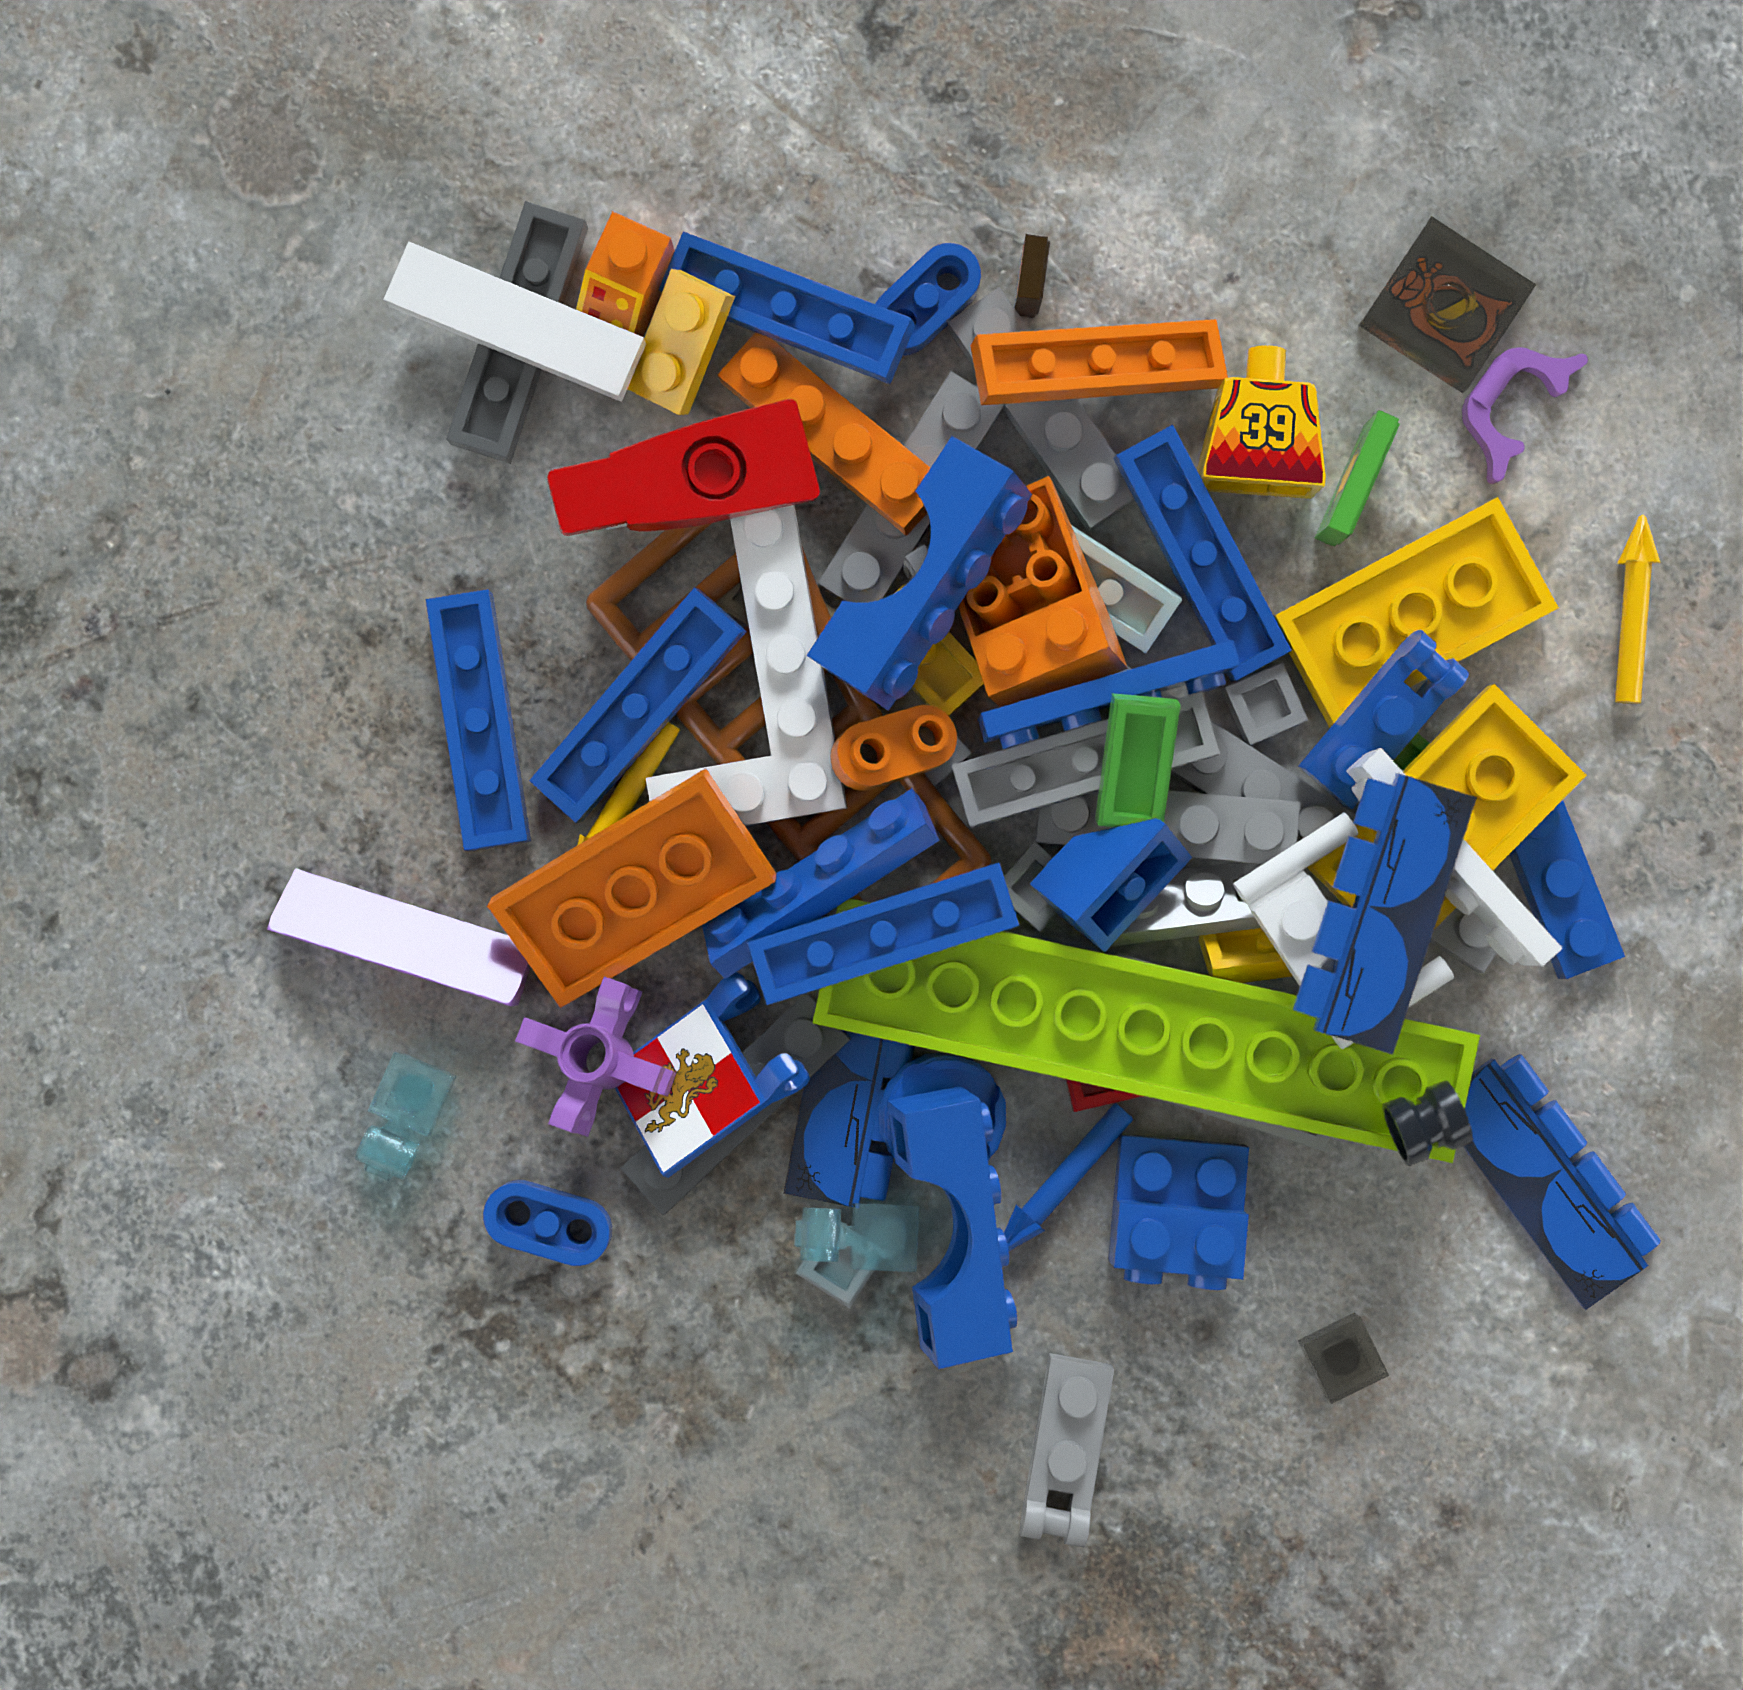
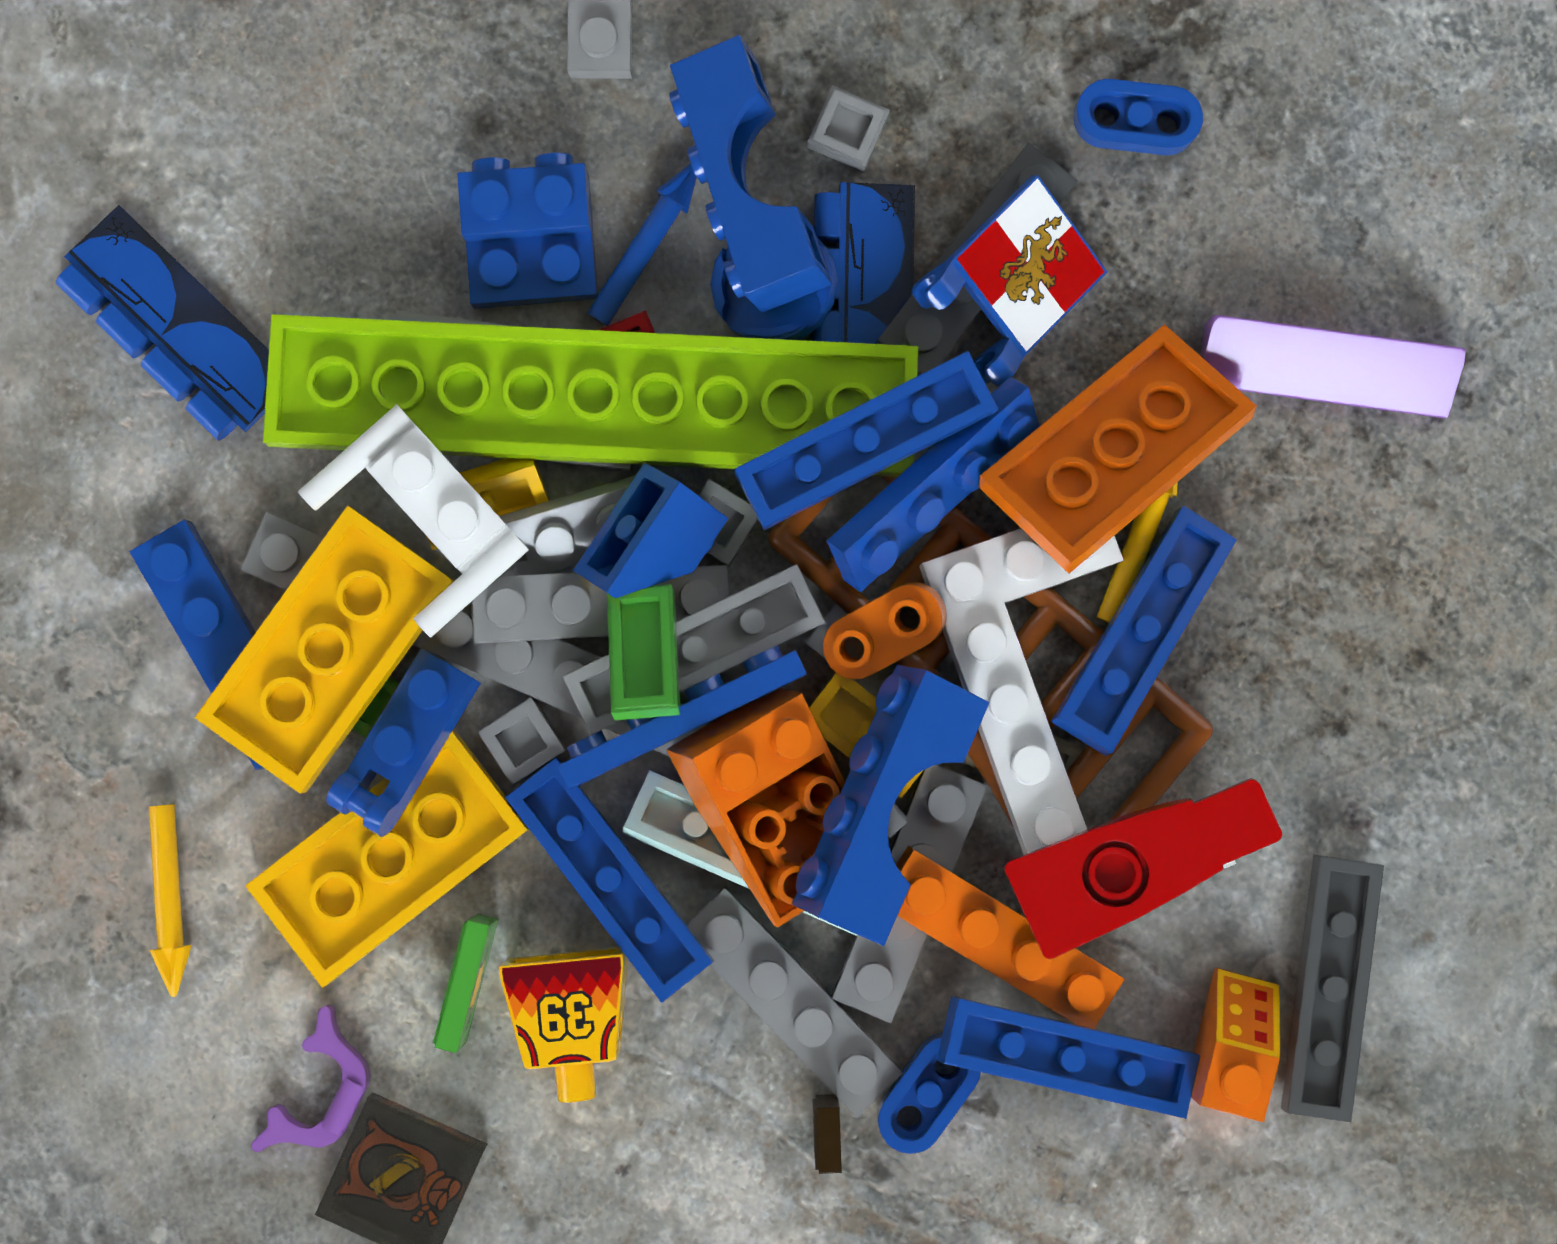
camera: 175 degrees right, 0 degrees up
(411, 1099) = (1292, 210): clear light blue plate -> none
(478, 720) = (1297, 591): blue plate -> none
(515, 321) = (1339, 995): white tile -> none
(578, 1103) = (1130, 234): medium lavender pin -> none
(680, 341) = (1168, 1004): yellow plate -> none
(879, 1236) = (815, 155): clear light blue plate -> none
(1098, 361) = (746, 1055): orange plate -> none
(1343, 1358) = (347, 118): clear smoke plate -> none
(1394, 913) = (367, 539): blue windscreen -> none
(1434, 1119) = (300, 345): black wheel -> none
(1475, 887) = (297, 587): white plate -> none

